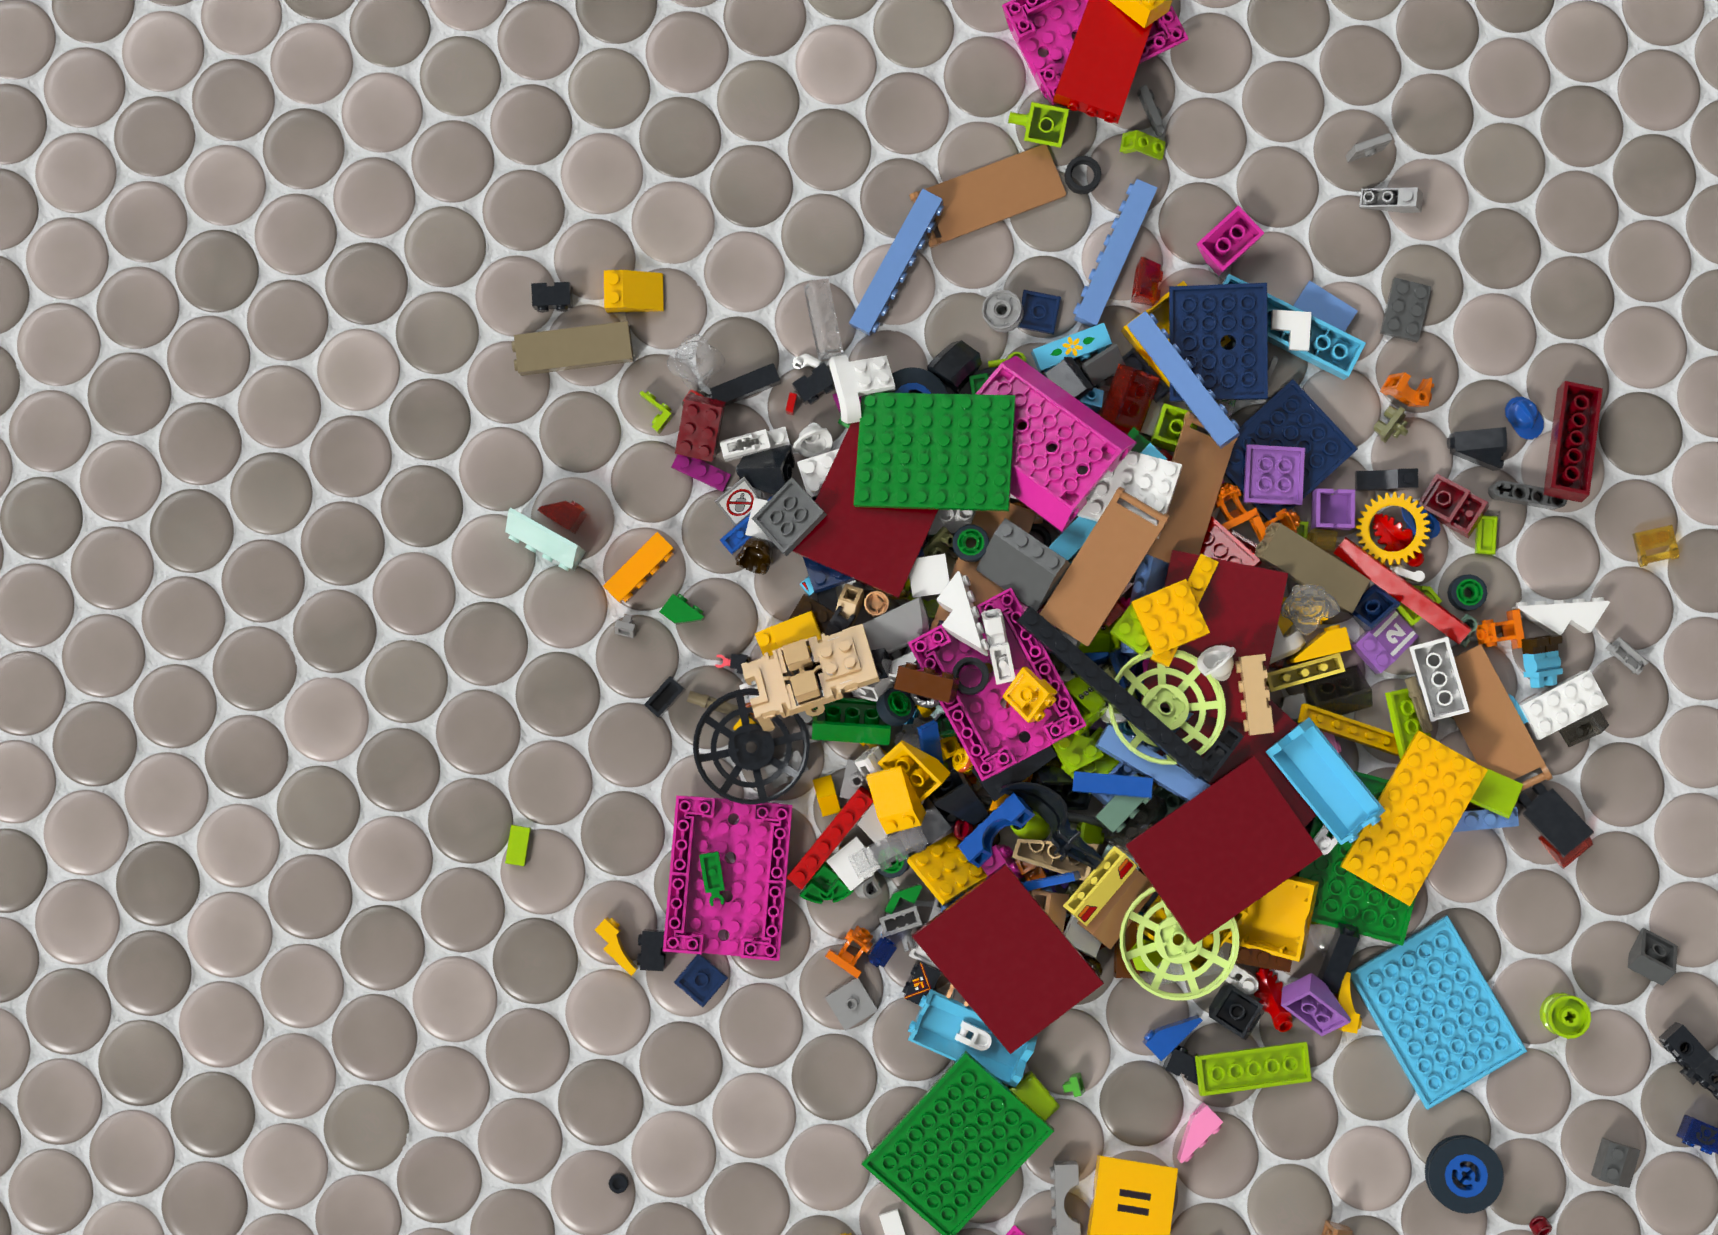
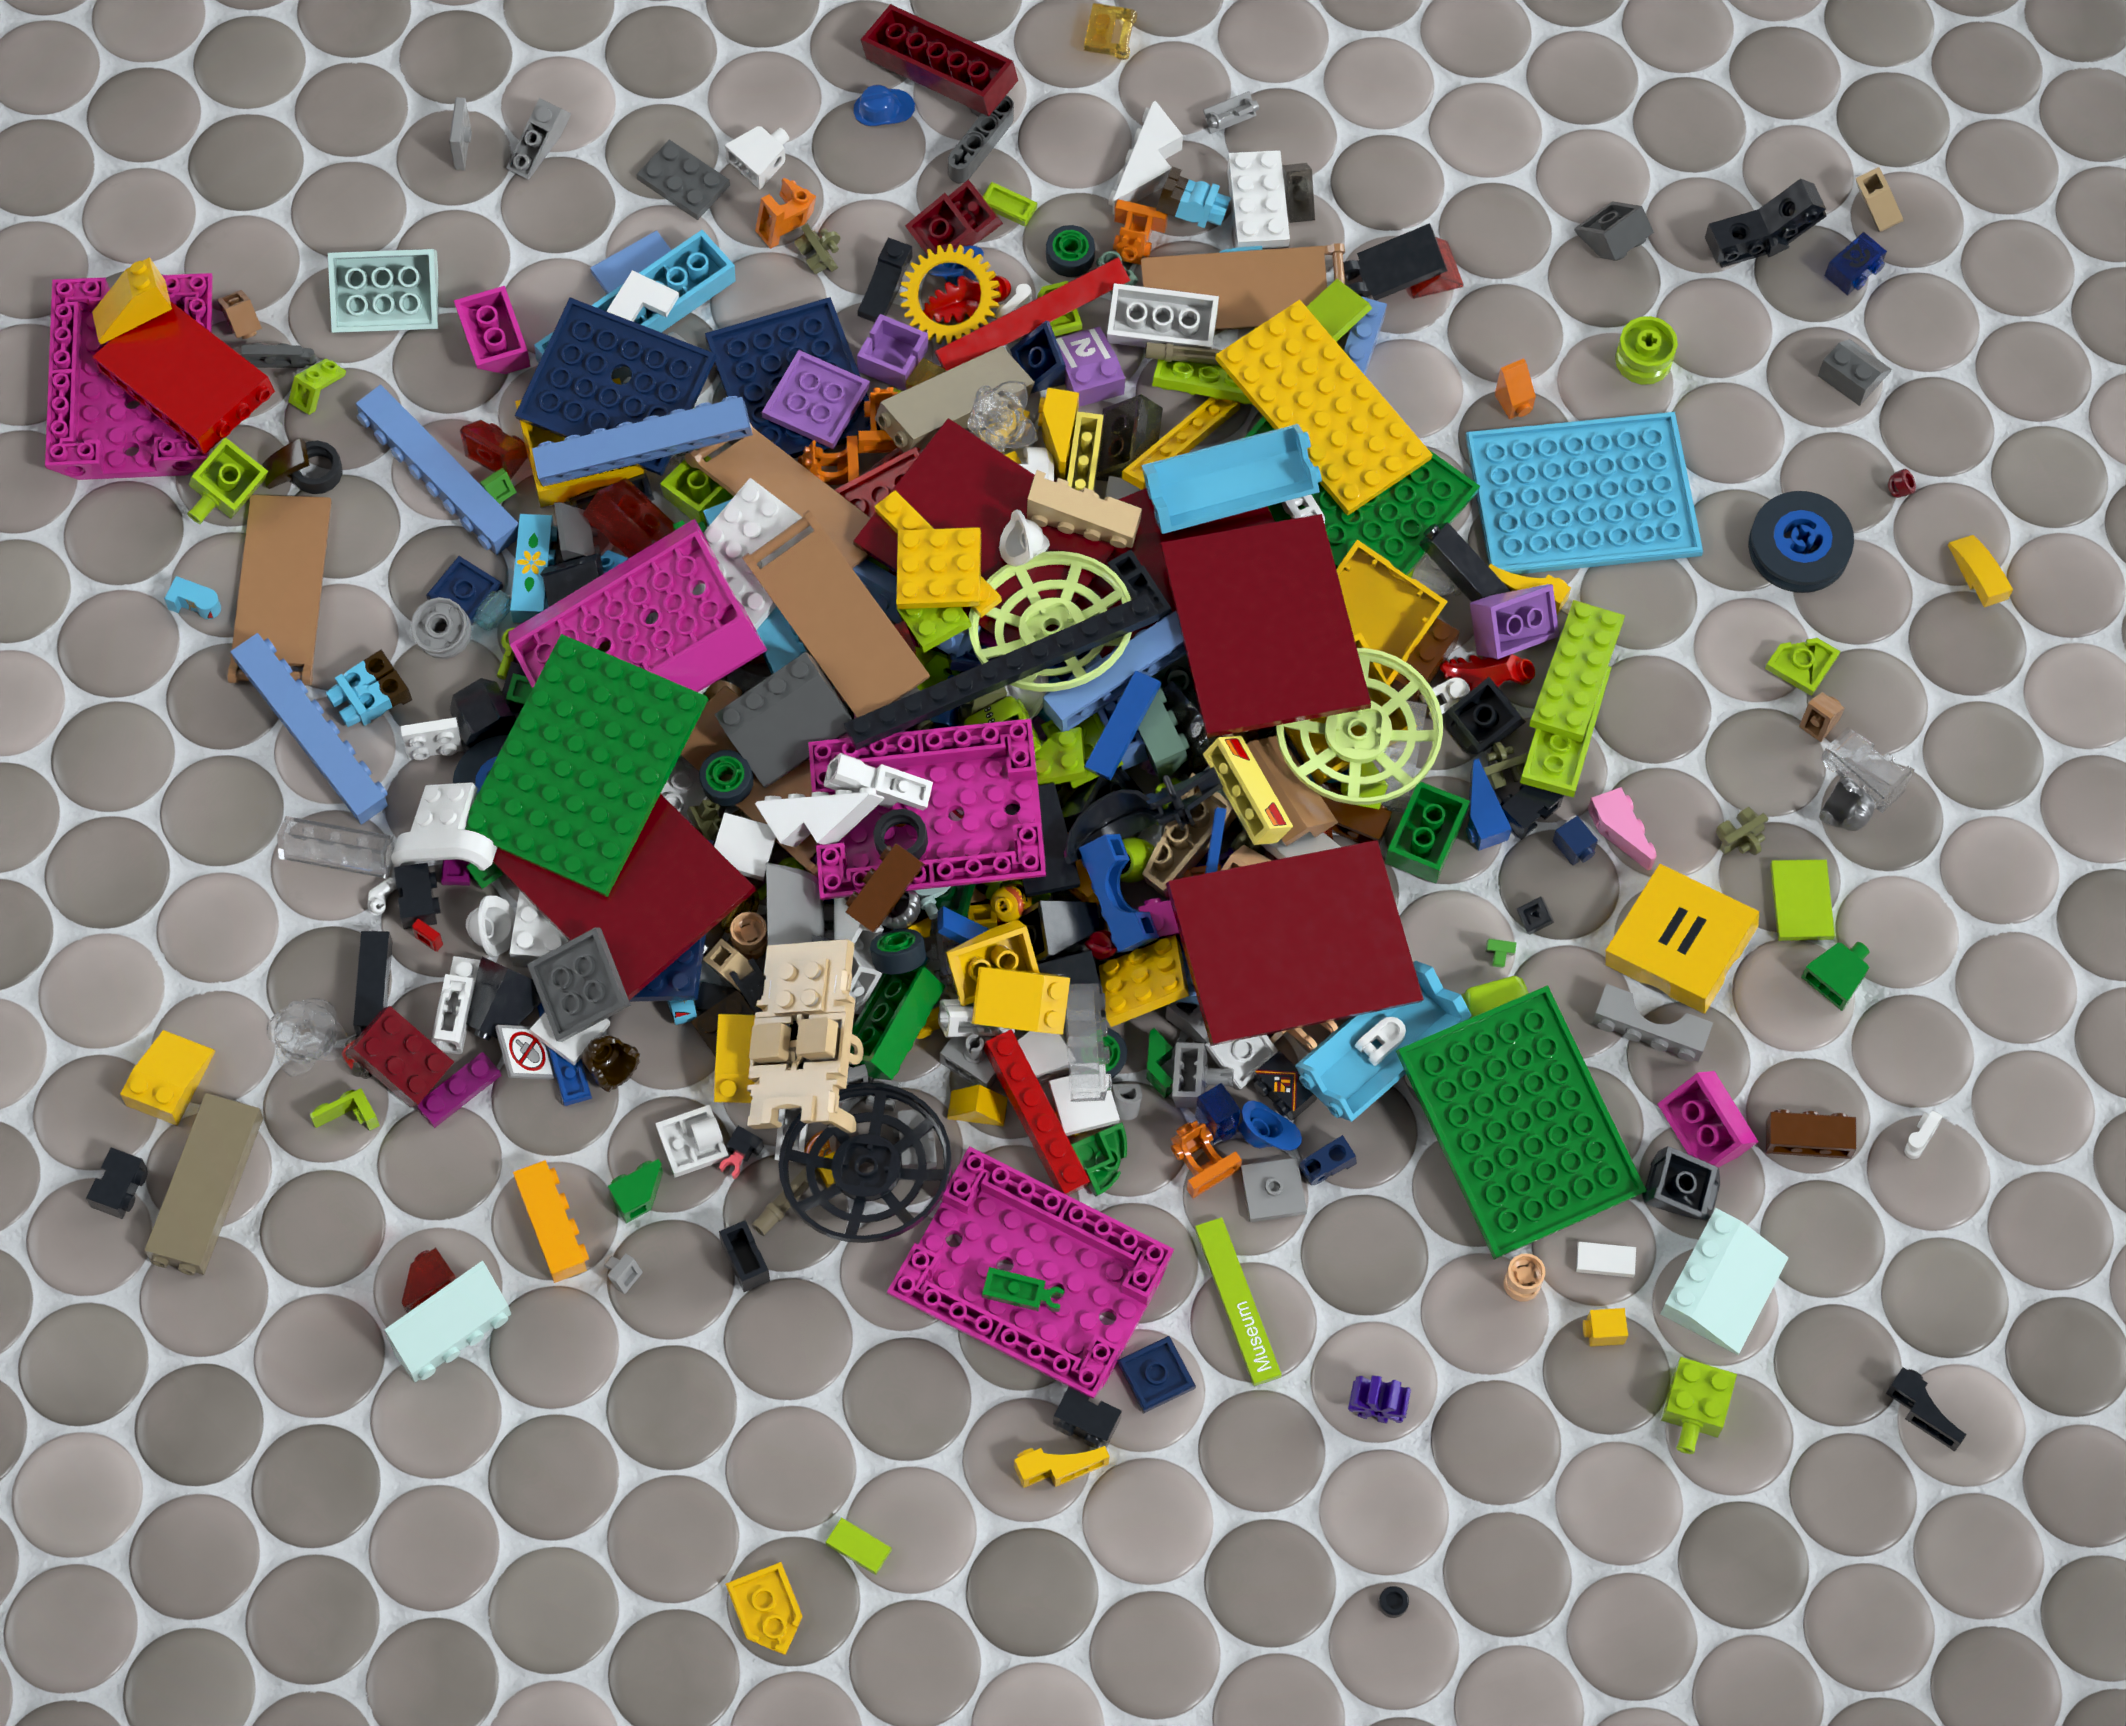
camera: 70 degrees left, 20 degrees down
(458, 807) = (766, 1607): none -> yellow tile
(728, 630) = (692, 1141): none -> white plate
(737, 1127) = (1379, 1399): none -> dark purple gear
(768, 1011) = (1238, 1302): none -> lime tile
(857, 1186) = (1524, 1277): none -> light nougat wheel
(882, 1031) = (1328, 1161): none -> dark blue leg
(887, 986) = (1266, 1128): none -> blue piece
(919, 339) = (432, 738): none -> white plate
(941, 286) = (369, 689): none -> medium azure hips
(957, 148) = (192, 597): none -> medium azure leg
(1030, 695) = (960, 769): yellow plate -> none
(1031, 337) = (492, 610): none -> clear light blue brick
(1075, 155) = (284, 462): none -> dark brown slope
(1110, 1098) = (1535, 915): none -> black tile
(1119, 298) = (499, 486): none -> bright green tile
(1135, 1007) = (1427, 832): none -> green brick
(1170, 70) = (240, 314): none -> medium nougat slope
(1173, 1105) = (1575, 841): none -> dark blue brick
(1210, 1036) = (1495, 772): none -> olive hips
(1230, 154) = (383, 290): none -> light aqua slope
(1237, 1216) = (1751, 826): none -> olive hips
(1297, 1060) = (1577, 671): none -> lime plate
(1372, 1208) = (1803, 663): none -> lime plate
(1446, 351) = (758, 154): none -> white torso
(1480, 446) = (896, 162): black slope -> none
(1492, 939) = (1515, 389): none -> orange slope

